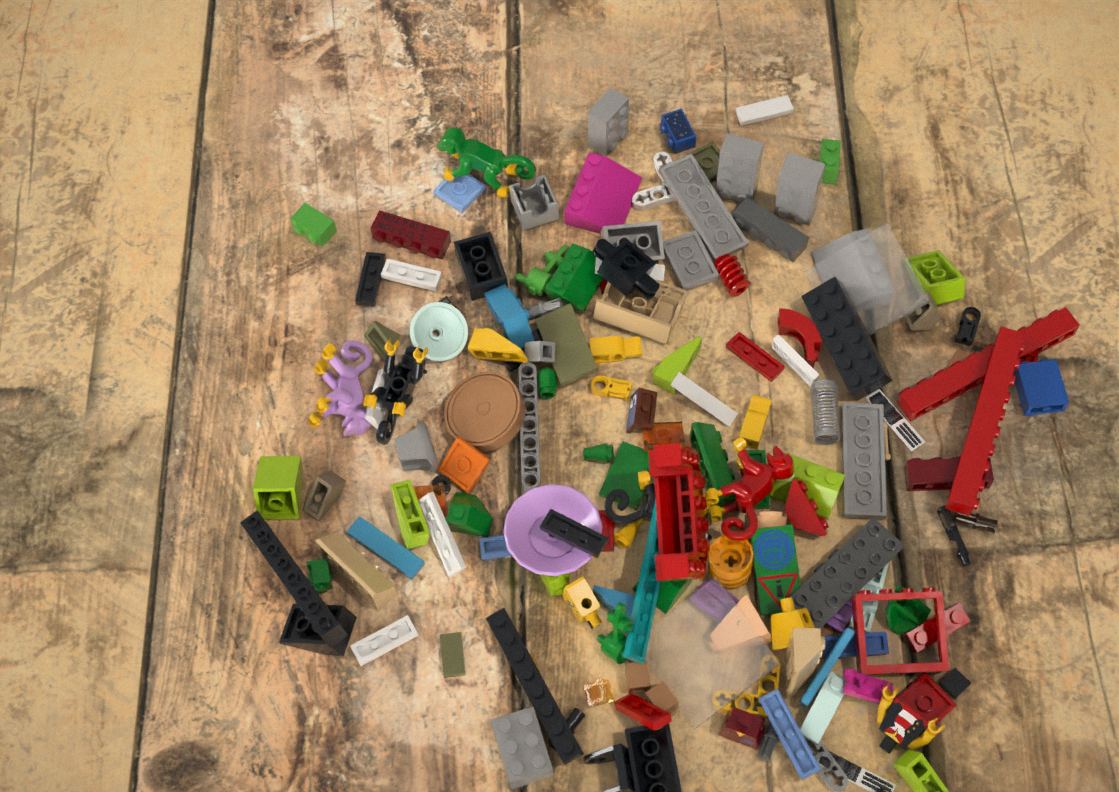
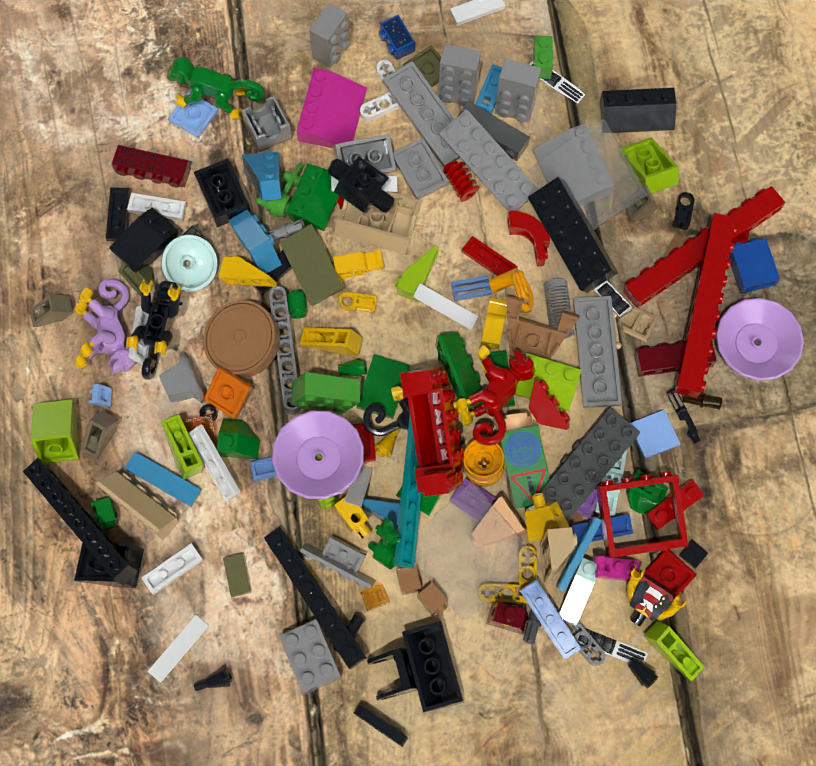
camera: 10 degrees left, 10 degrees up
(290, 366) = (51, 310): none -> dark tan slope
(313, 225) = (55, 163): bright green brick -> none
(330, 456) = (101, 395): none -> light blue tile
(380, 726) = (178, 648): none -> white sticker
(394, 304) = (144, 240): none -> black slope
(420, 762) = (219, 679): none -> black cone
(526, 249) = (264, 173): none -> dark azure wedge
(540, 352) = (287, 275): light grey brick -> none
(567, 469) = (325, 392): none -> bright green brick
(568, 647) = (341, 558): none -> light grey bracket
(573, 533) = (337, 457): black plate -> none
(580, 422) = (332, 340): none -> yellow slope
(592, 571) = (357, 490): none -> white sticker
(642, 410) = (389, 323): copper panel -> none
(643, 711) = (416, 613): red plate -> none
(663, 434) = (410, 346): clear orange slope -> none
(732, 380) = (454, 284): none -> medium blue tile
(762, 258) = (488, 161): none -> light grey plate
(769, 189) = (490, 89): none -> dark azure plate
(787, 386) = (521, 286): none -> light orange piece
(794, 360) = (526, 260): white tile -> none
(798, 437) = (532, 336): none -> medium nougat wing
(849, 193) = (563, 86): none -> sticker
(911, 435) = (637, 323): none -> tan slope
(921, 552) = (655, 434): none -> light blue tile
(928, 220) = (639, 109): none -> black slope
(1053, 448) = (768, 324): none -> lavender dish

